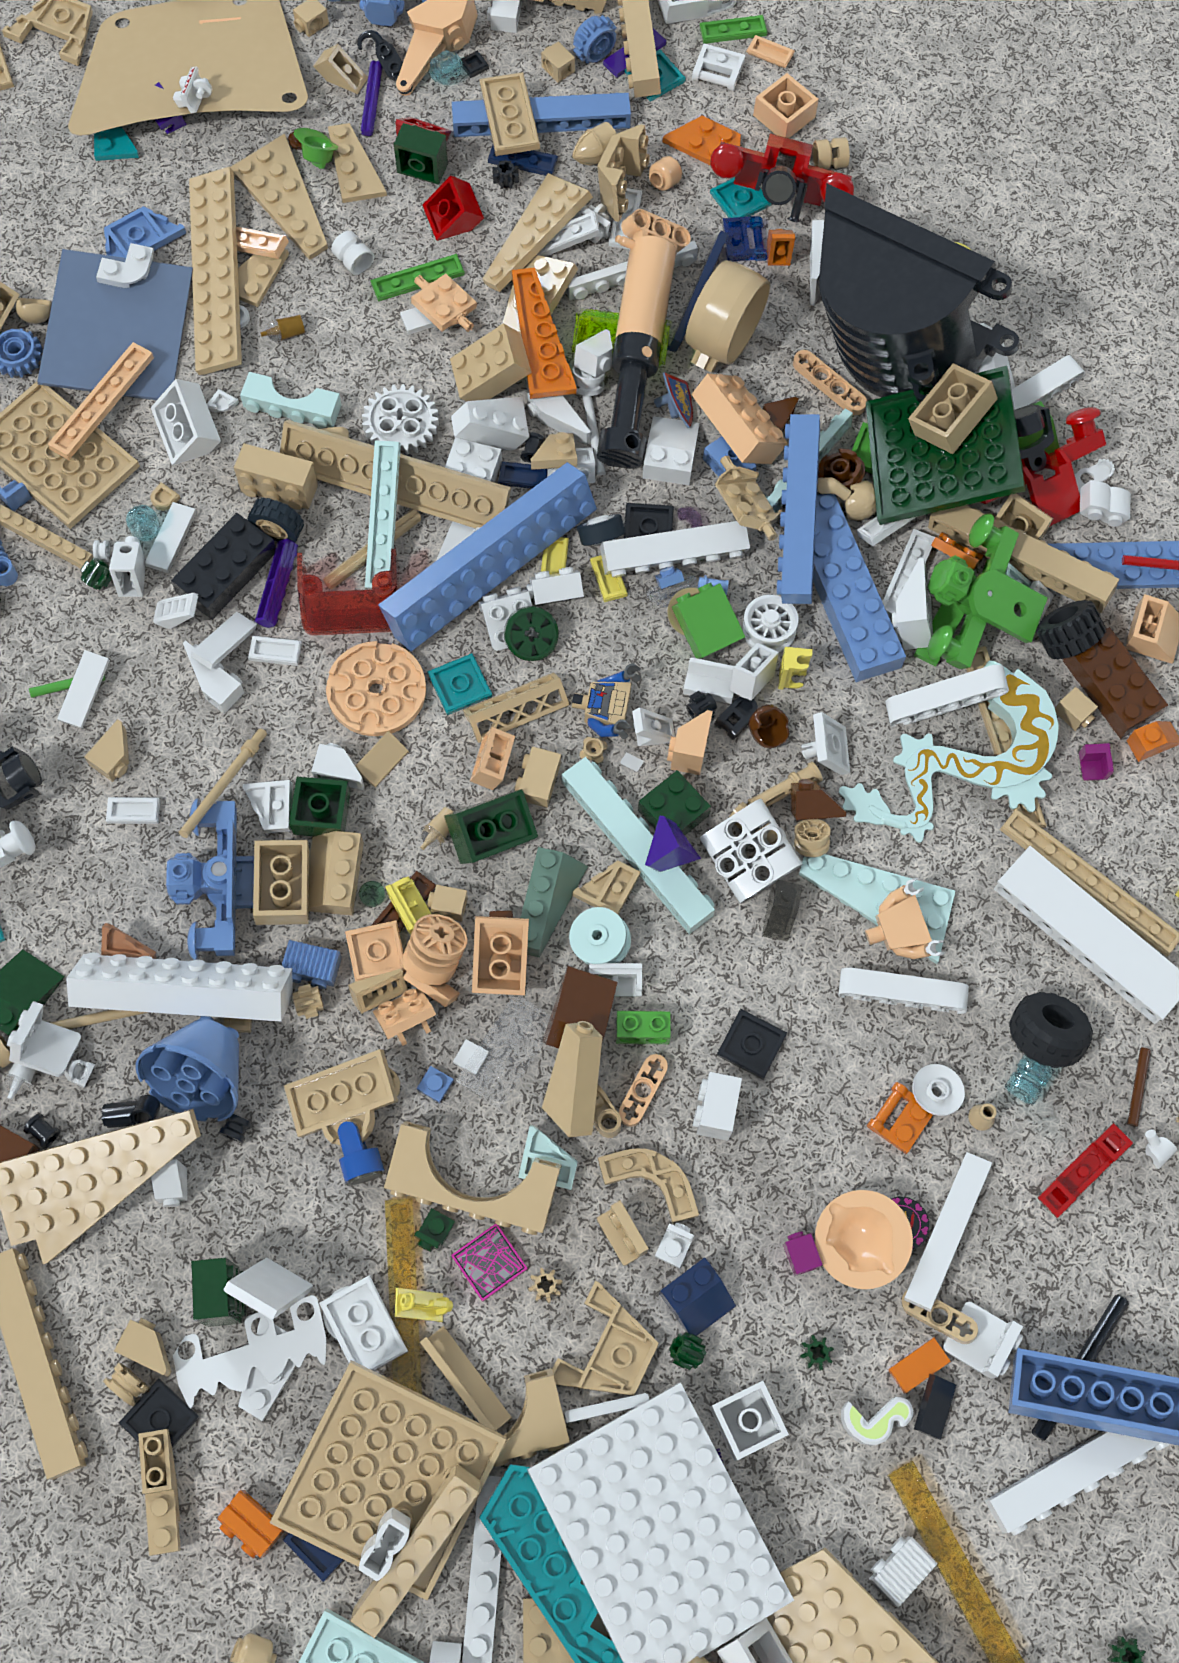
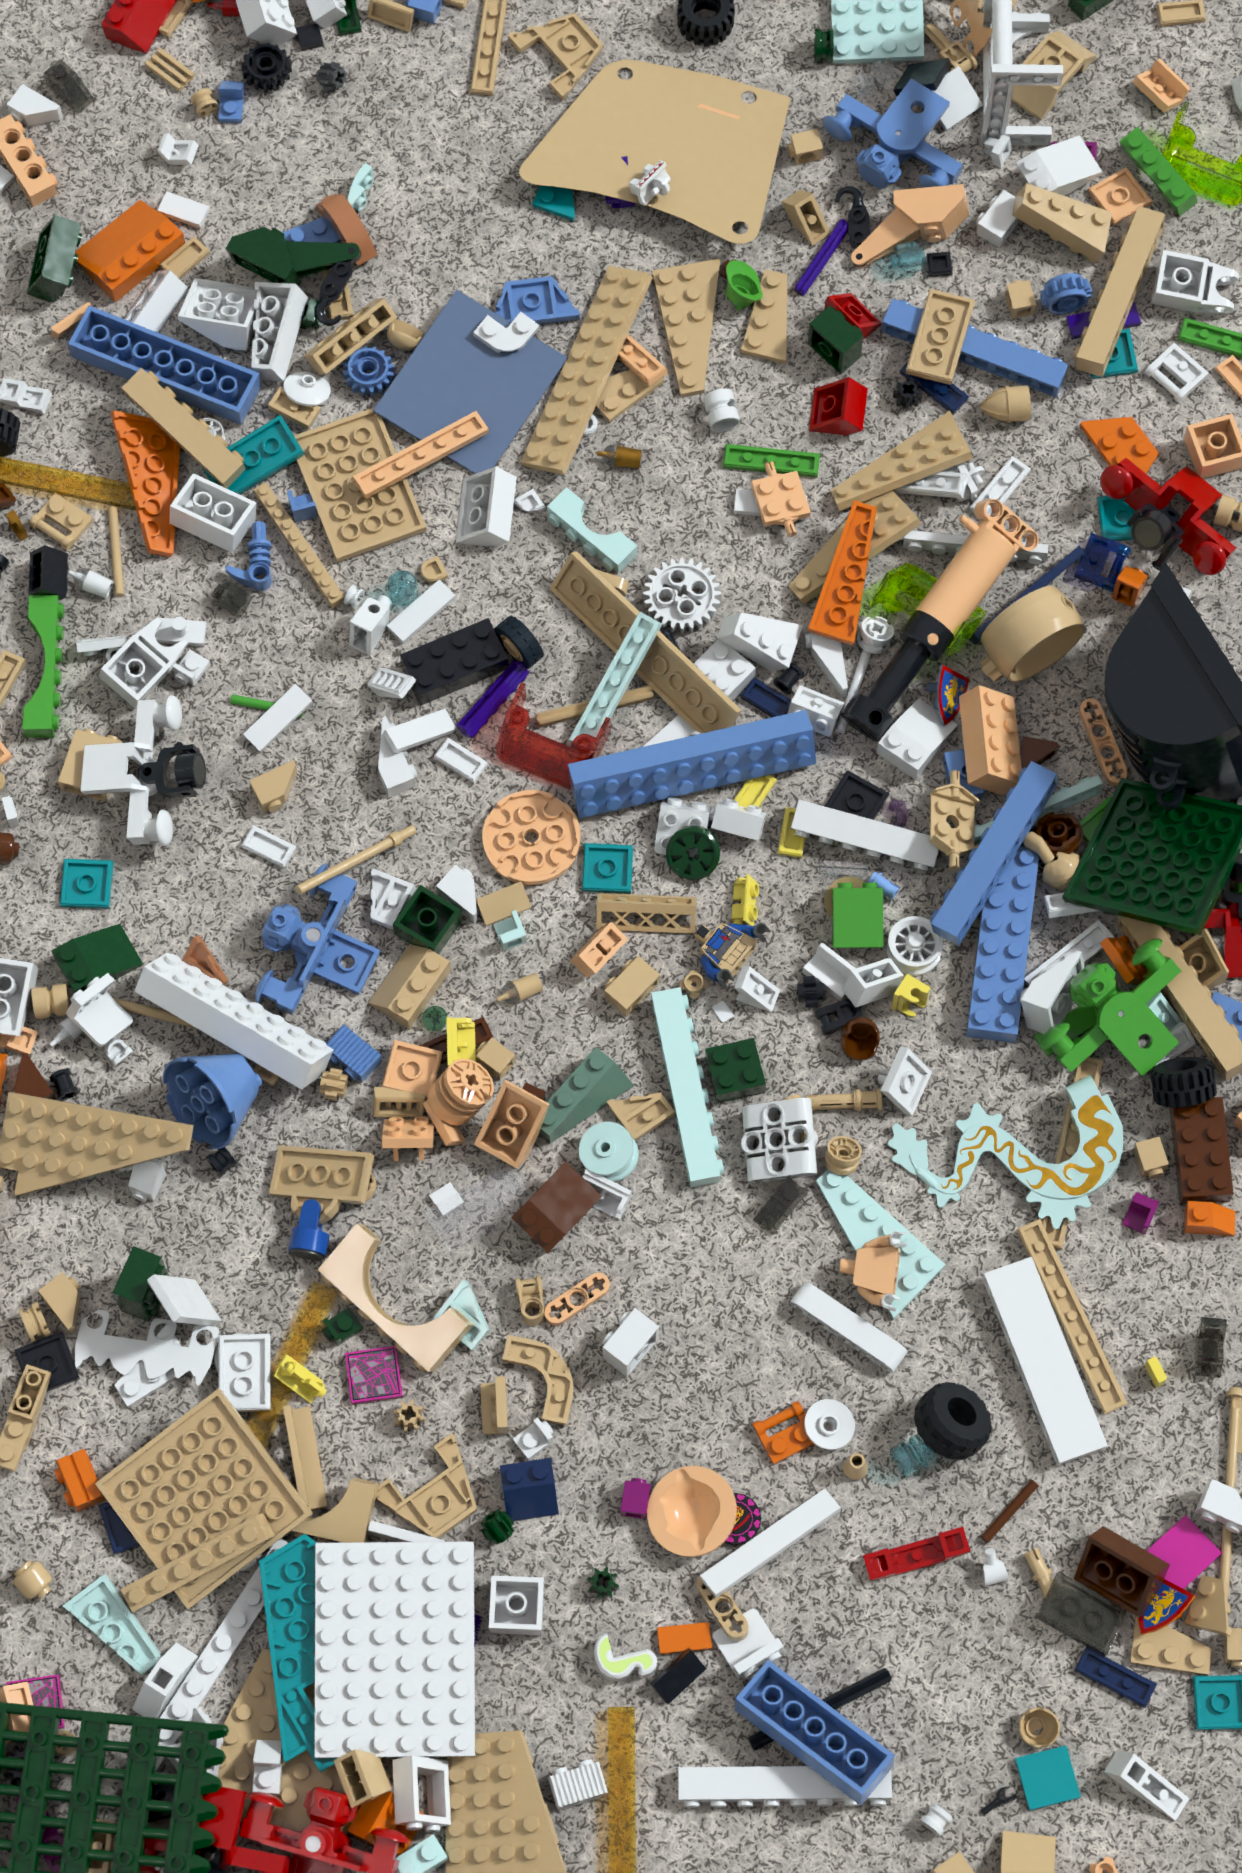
camera: 30 degrees right, 0 degrees up
(96, 573) = (338, 616): dark green gear -> none
(131, 1112) = (143, 1105): black piece -> none
(276, 476) = (540, 600): tan brick -> none
(281, 882) = (361, 971): tan brick -> none
(389, 1540) = (173, 1545): white brick -> none
(401, 781) = (510, 932): none -> light aqua panel
(435, 1084) = (404, 1207): medium blue plate -> none
(490, 364) = (787, 583): tan brick -> none
(491, 826) = (566, 1009): dark green slope -> none
(555, 452) = (805, 693): tan wing -> none
(574, 1080) = (519, 1258): tan slope -> none
(594, 354) = (890, 615): white slope -> none
(596, 647) = (745, 891): none -> light yellow hinge
(601, 529) = (807, 786): black wheel -> none
(623, 155) = (1026, 425): tan slope -> none
(643, 1027) = (604, 1246): bright green brick -> none
(665, 173) = (1061, 461): light nougat head -> none
(669, 577) = (845, 859): medium blue plate -> none
(669, 847) = (708, 1102): dark purple slope -> none
(689, 745) = (780, 1020): light nougat slope -> none
(751, 1044) = (691, 1307): black tile -> none
(813, 802) = (862, 1125): reddish brown slope -> none
(947, 695) = (1032, 1087): white beam -> none
(953, 408) = (1179, 826): tan brick -> none

